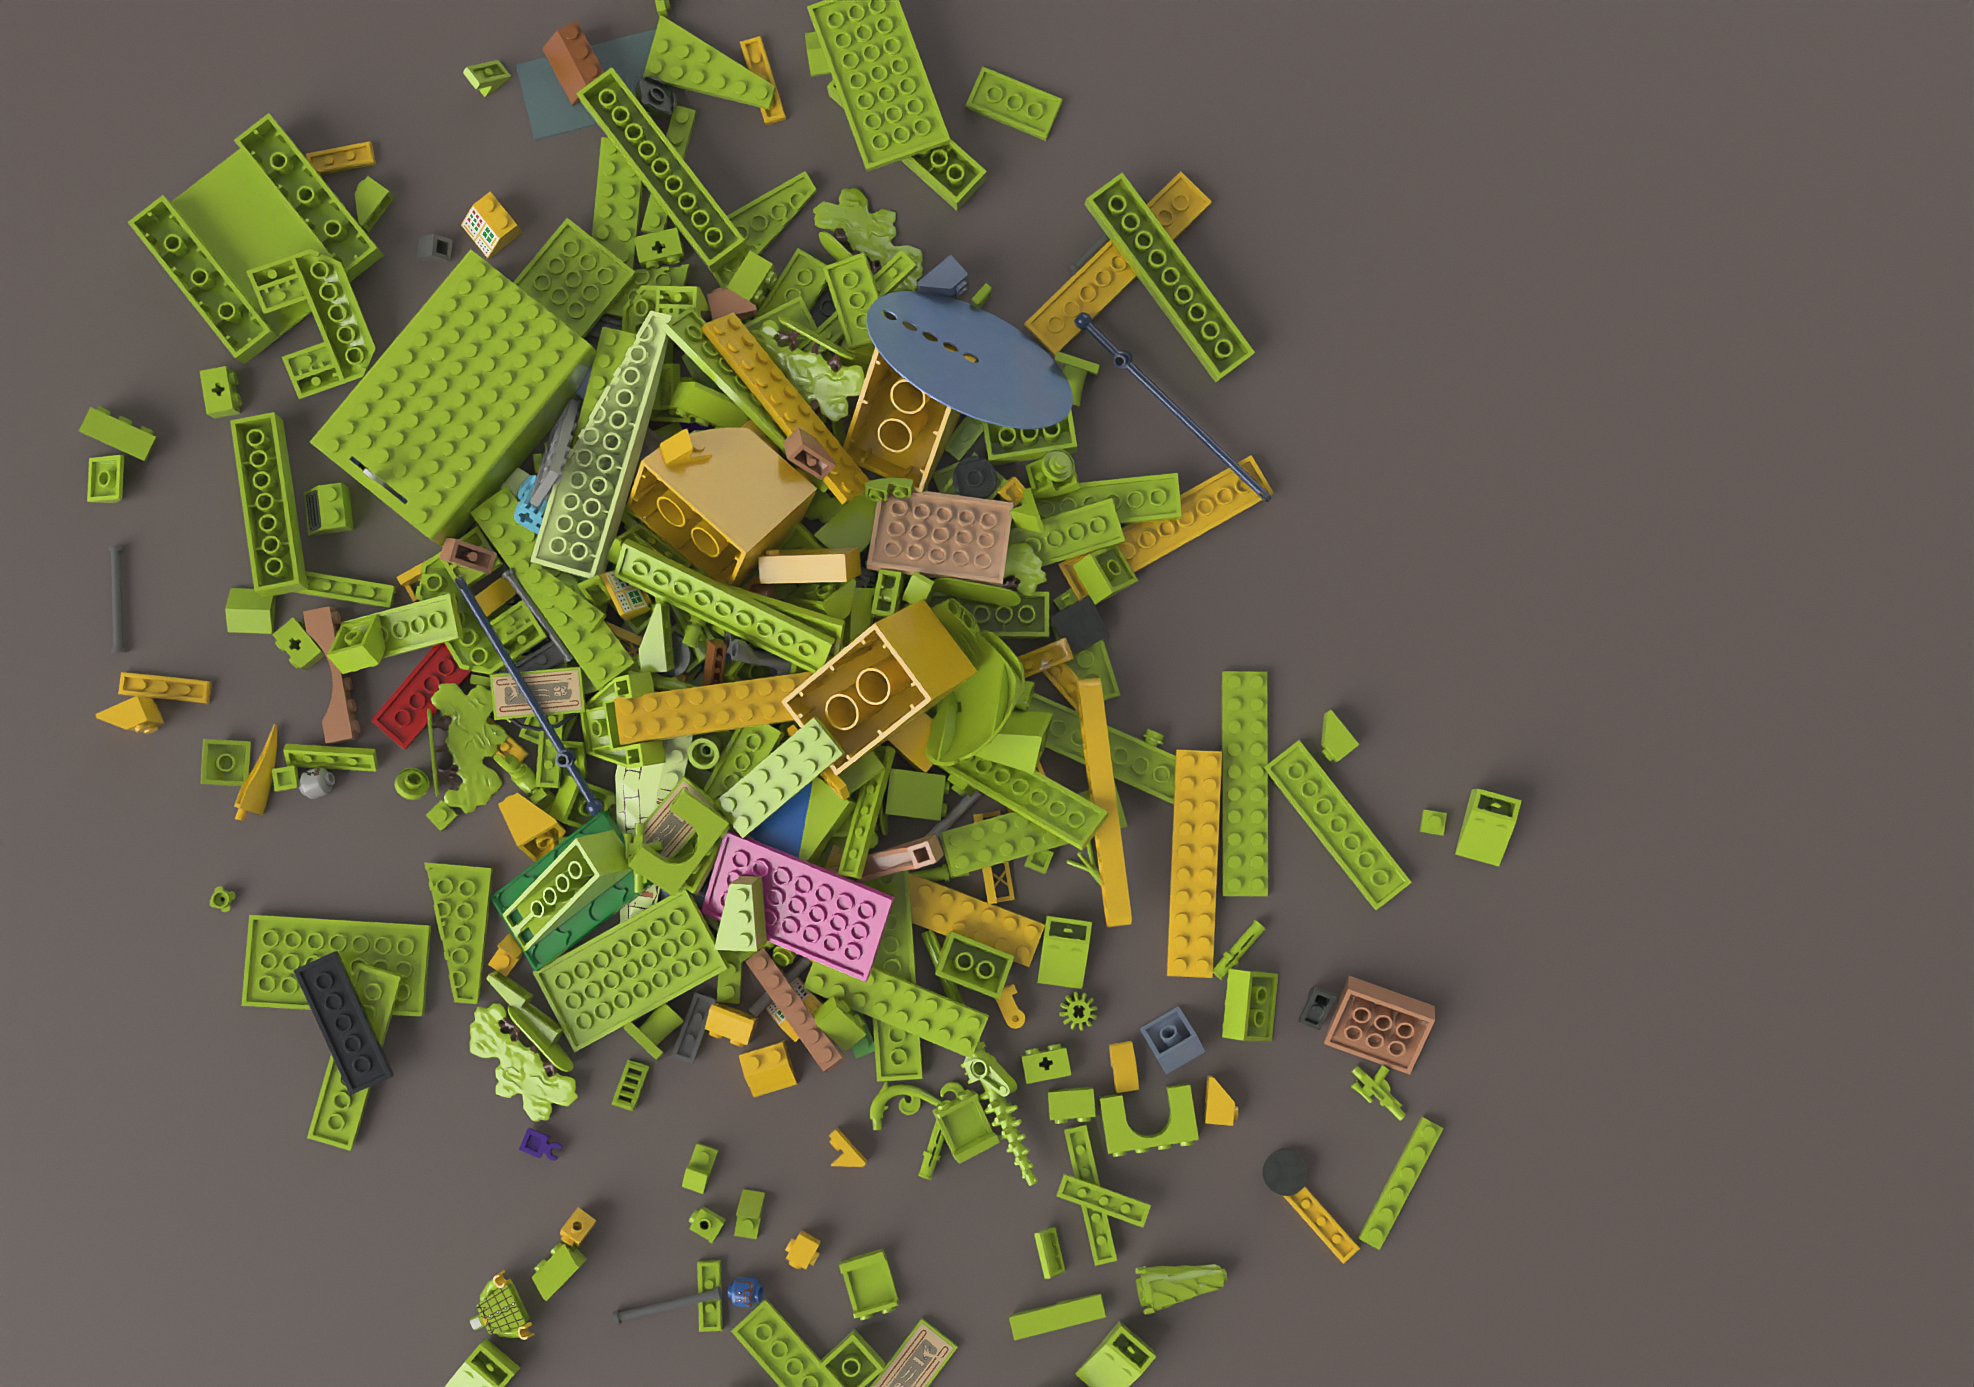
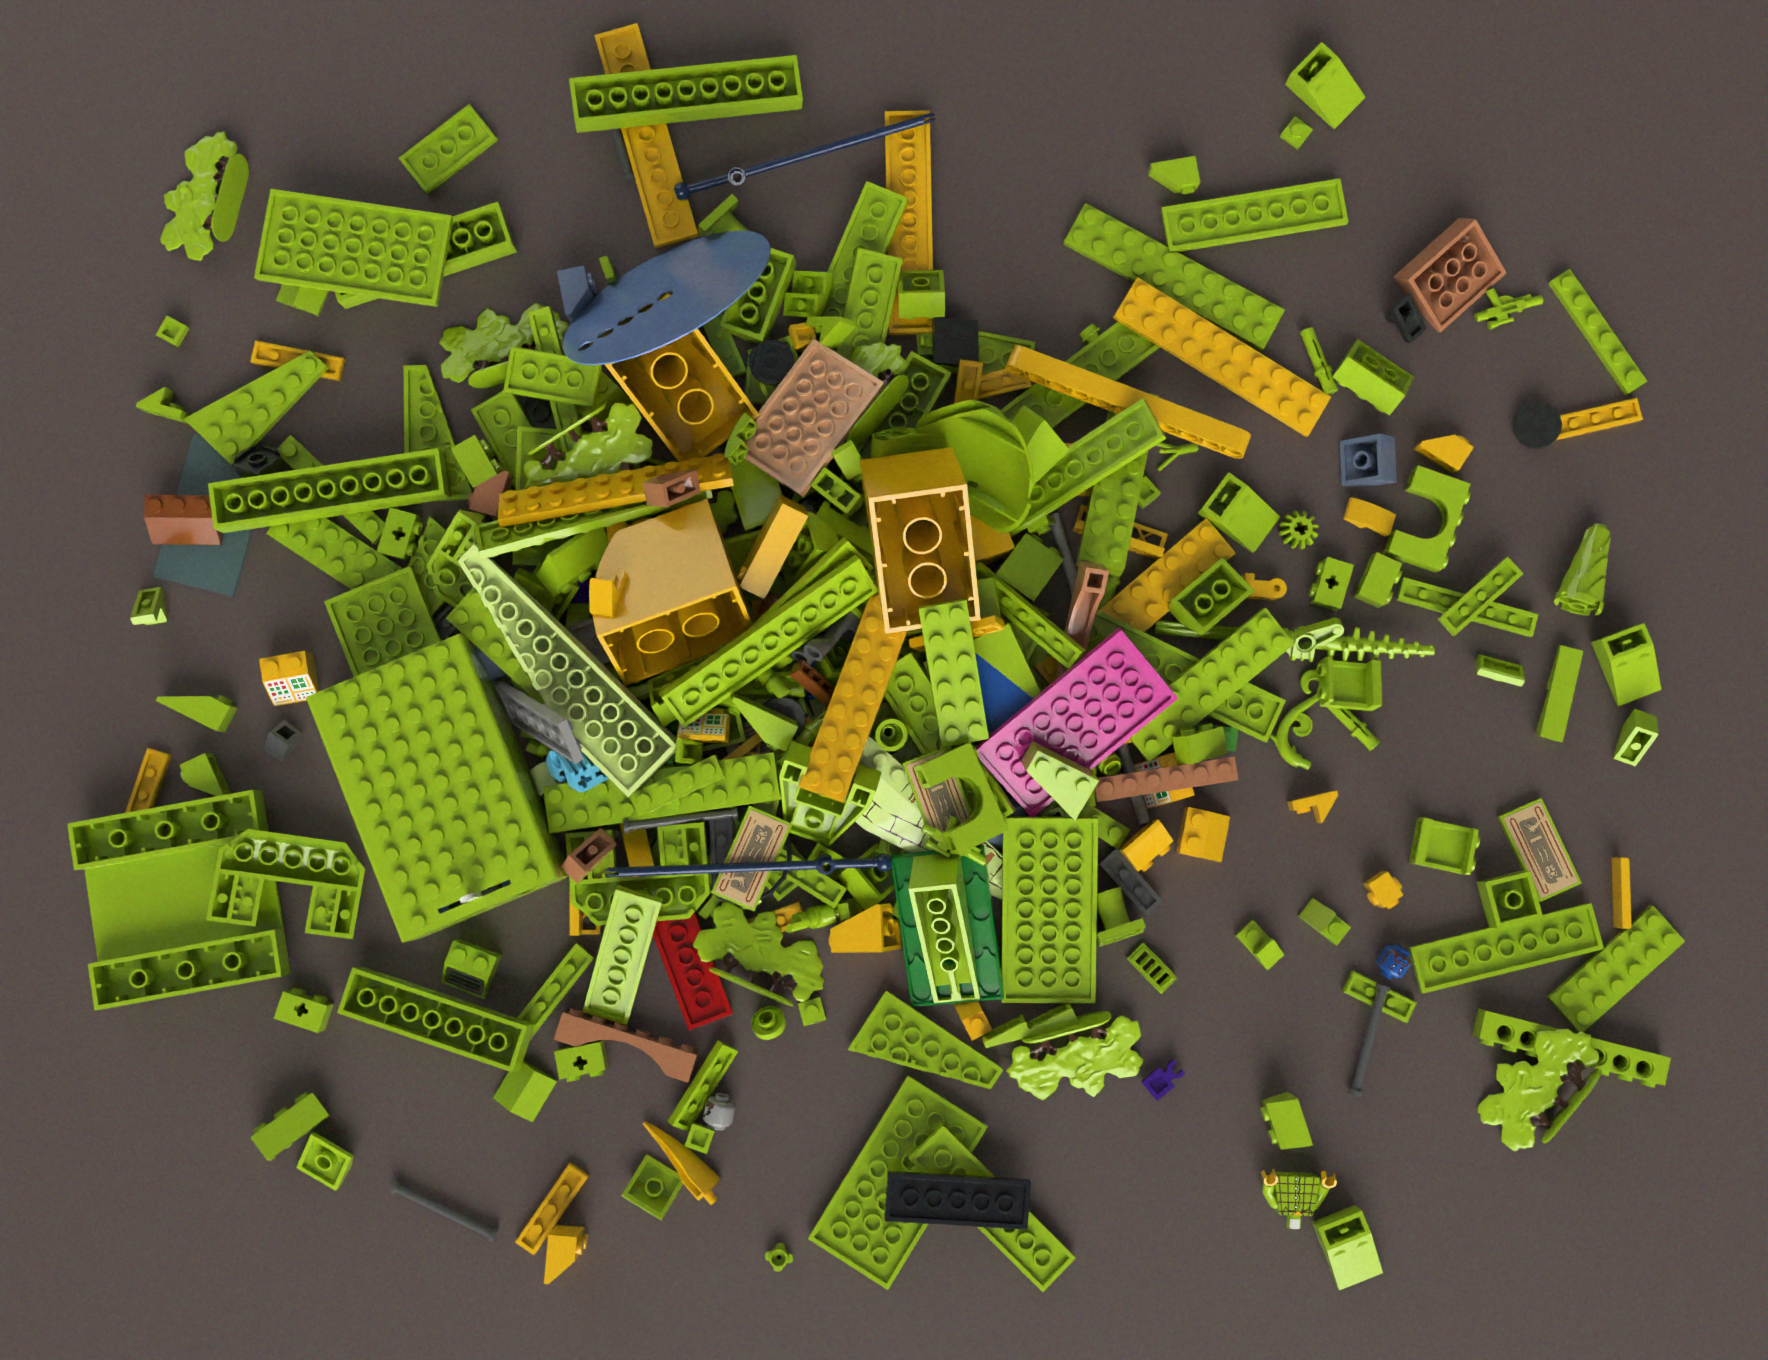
camera: 60 degrees left, 0 degrees up
(358, 645) = (613, 1003): lime slope -> none
(426, 174) = (207, 710): none -> lime slope
(578, 1220) = (1257, 1076): yellow brick -> none
(714, 1220) = (1316, 955): lime brick -> none
(1057, 465) = (801, 281): lime plate -> none

